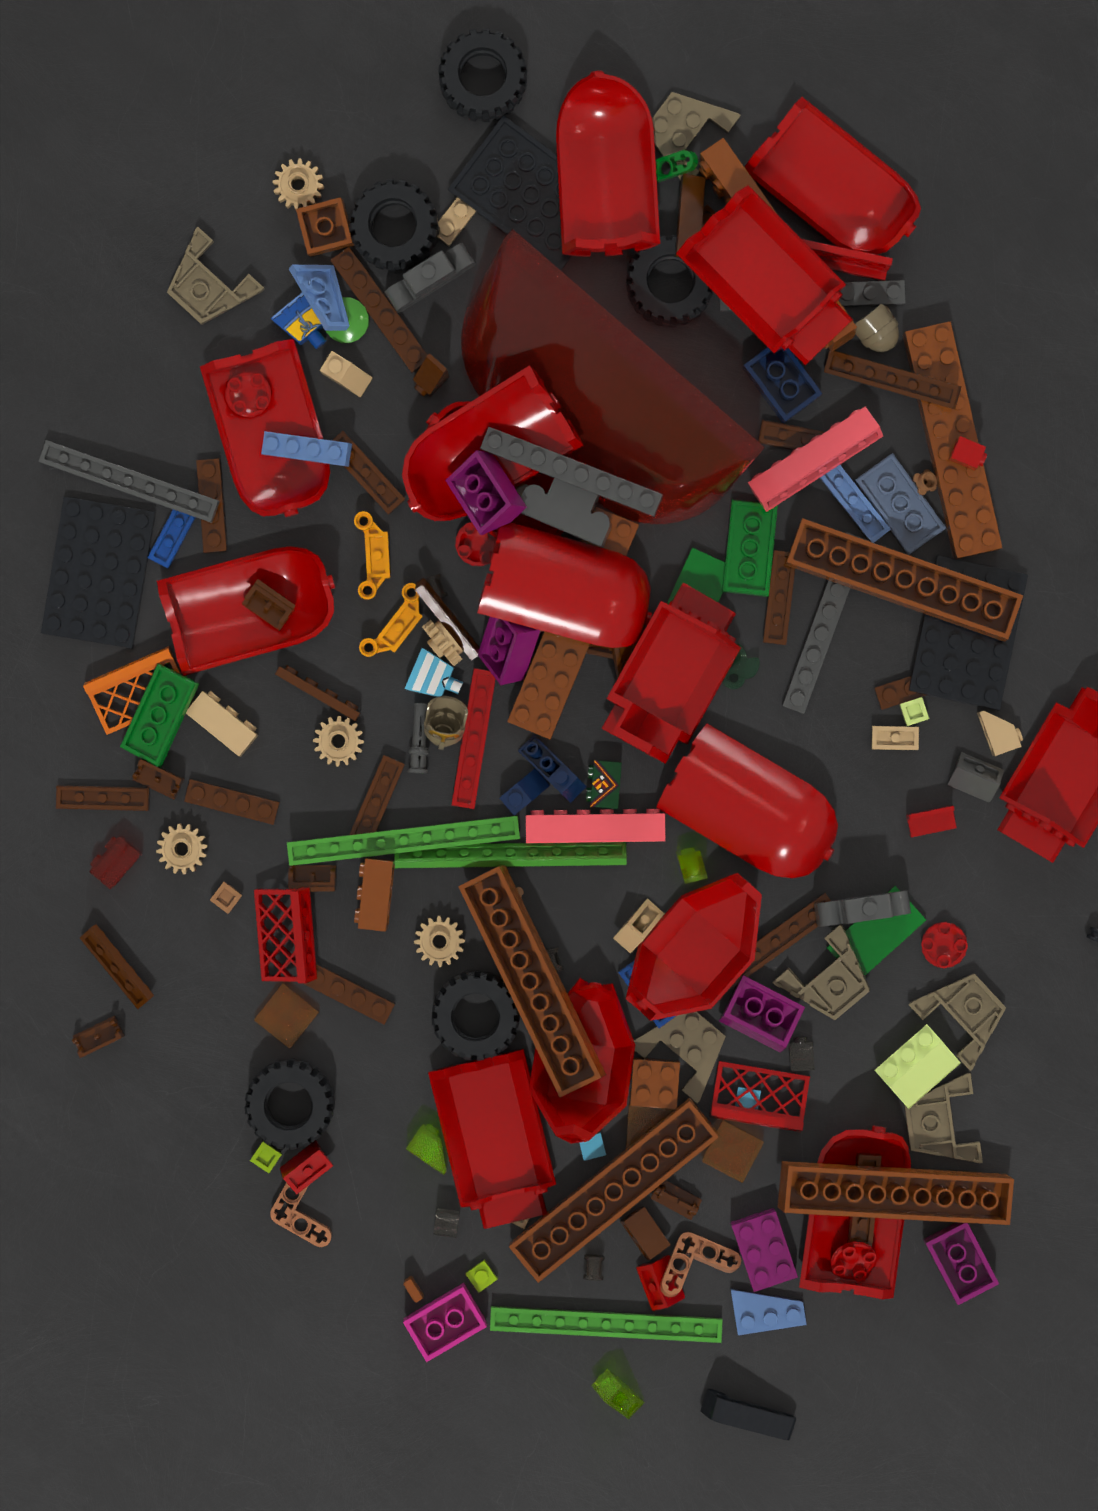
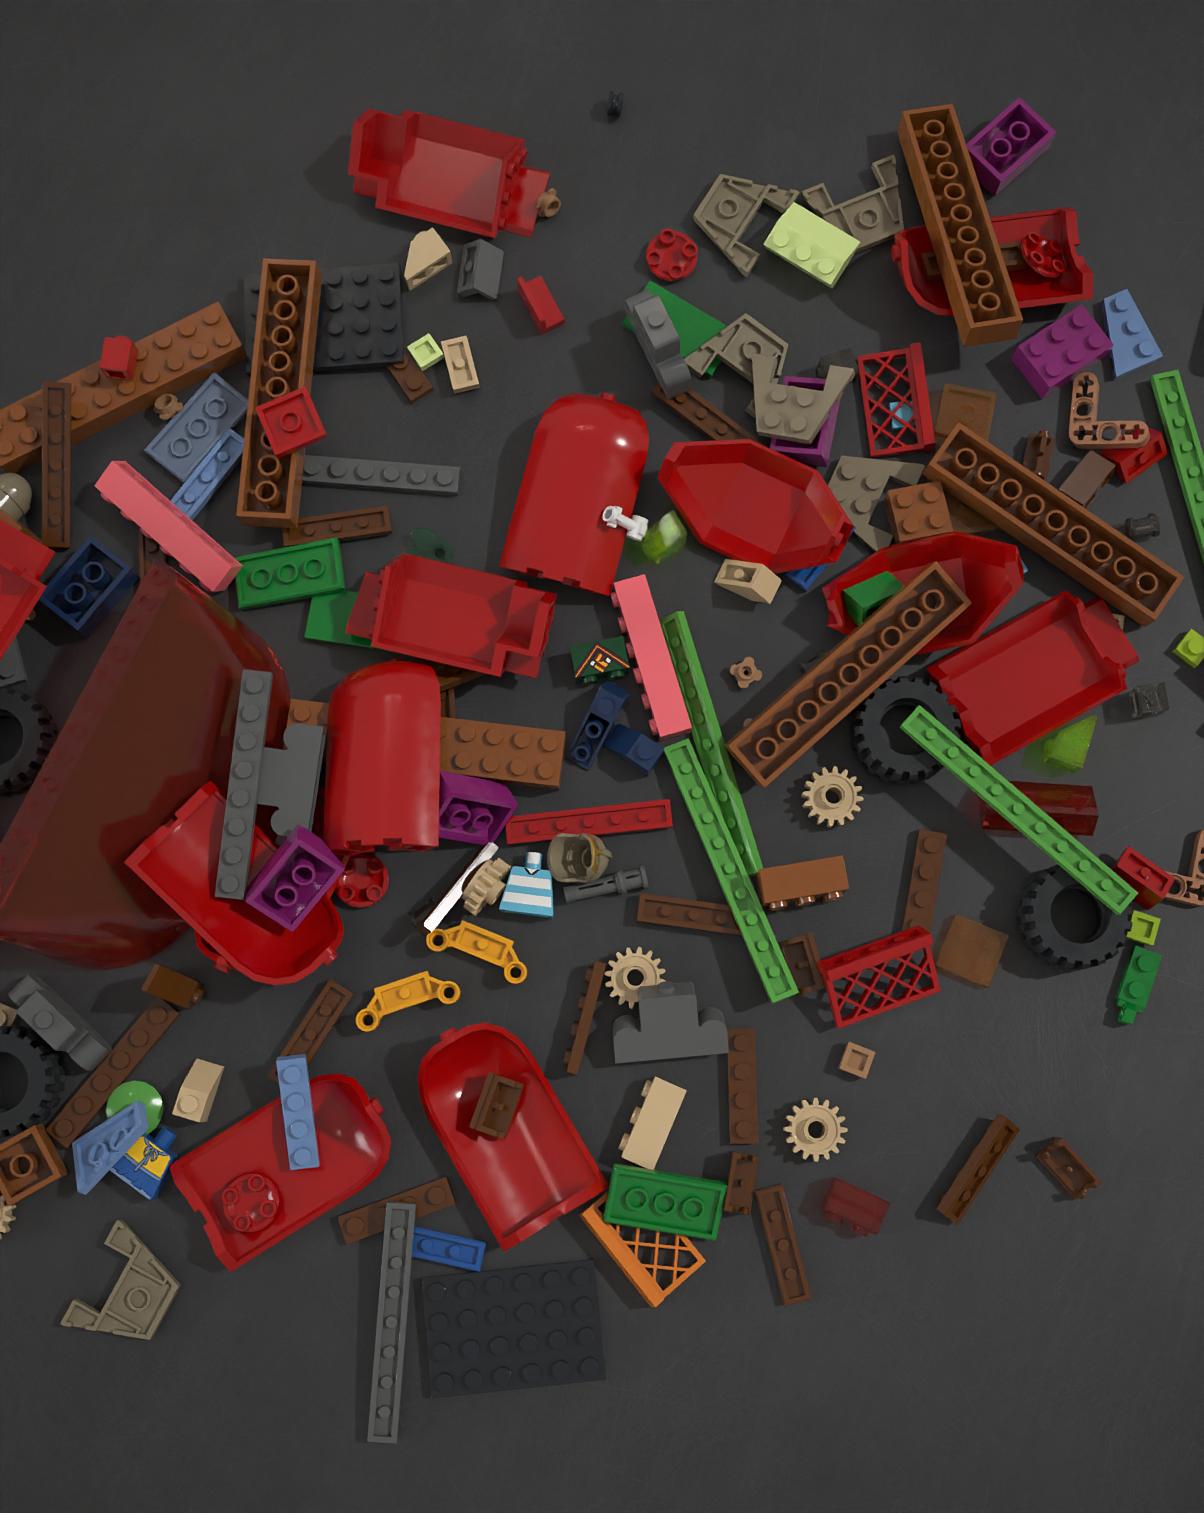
camera: 110 degrees left, 10 degrees down
(224, 1139) = (1136, 983): none -> green hinge
(292, 756) = (669, 1026): none -> dark grey brick
(383, 1081) = (1019, 810): none -> bright green plate
(385, 1104) = (1066, 804): none -> clear red brick
(557, 897) = (745, 680): none -> medium nougat plate
(596, 1022) = (869, 595): none -> green brick
(706, 844) = (636, 526): none -> white bar
(769, 1003) = (793, 411): none -> dark tan wing
(867, 583) = (291, 422): none -> red plate
(1020, 852) = (548, 203): none -> medium nougat plate

